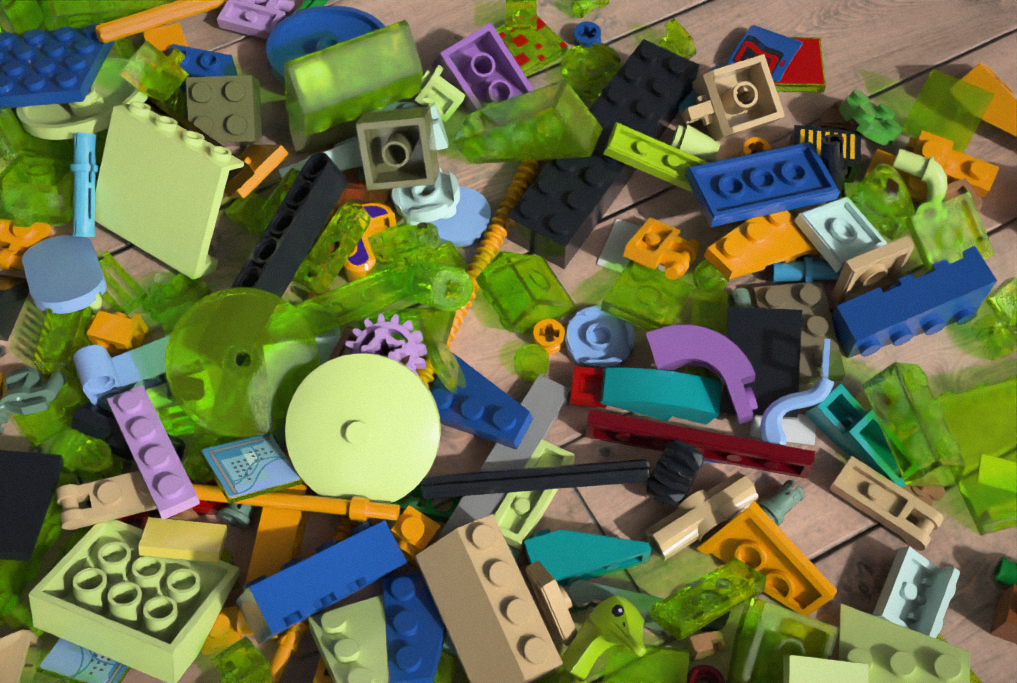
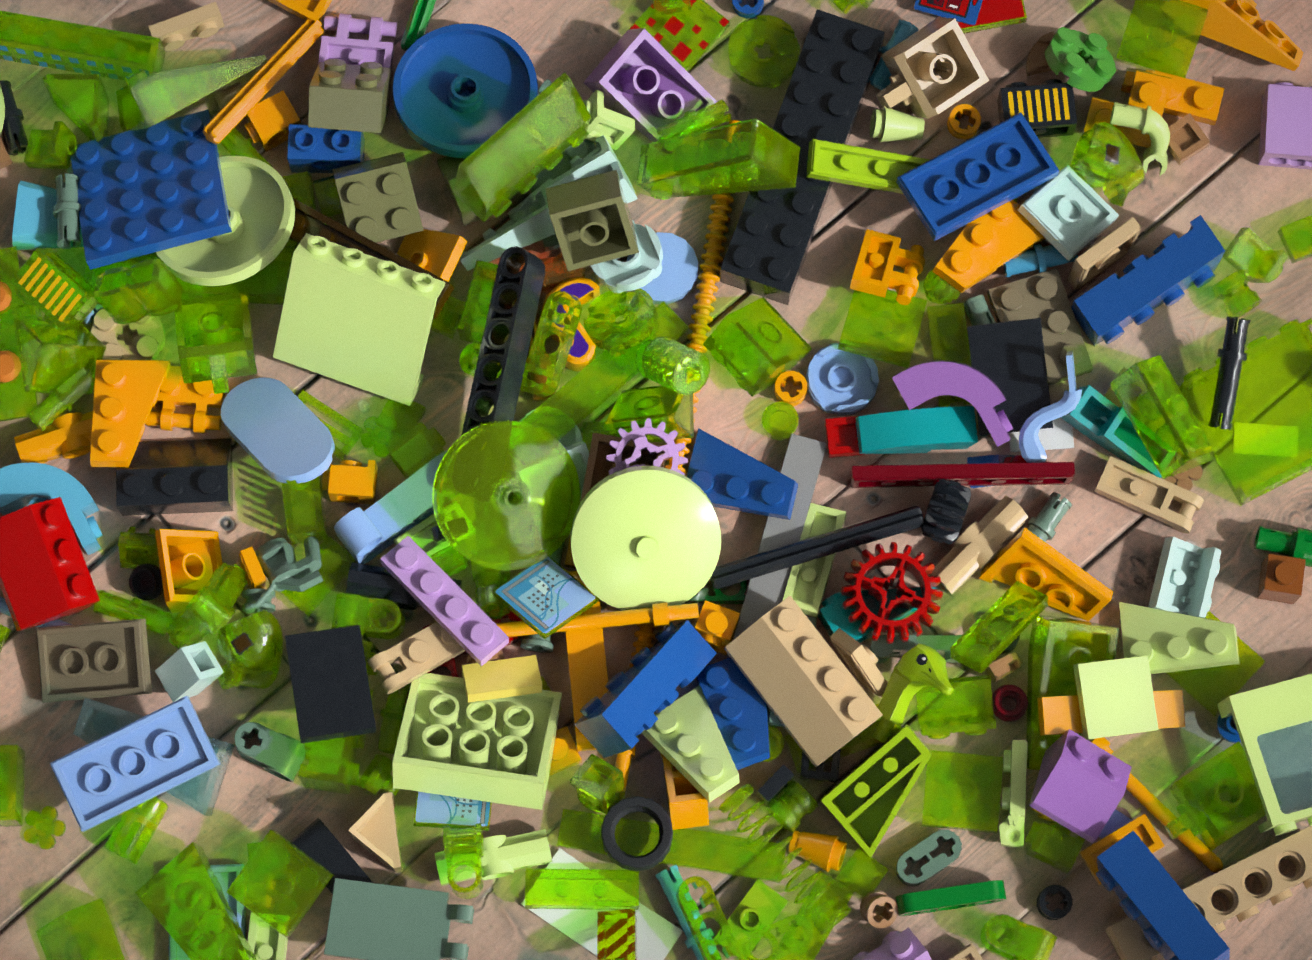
camera: 15 degrees left, 15 degrees up
(84, 172) = (264, 314): medium azure pin -> none
(155, 72) = (299, 178): clear neon green brick -> none
(228, 31) = (349, 96): none -> olive brick
(446, 366) = (704, 453): clear neon green piece -> none
(576, 516) = (907, 596): none -> red gear
(613, 251) = (840, 264): white sticker -> none
(834, 160) = (1050, 134): black pin -> none
(948, 231) = (1179, 190): clear neon green plate -> none
(986, 398) = (1229, 372): none -> black pin

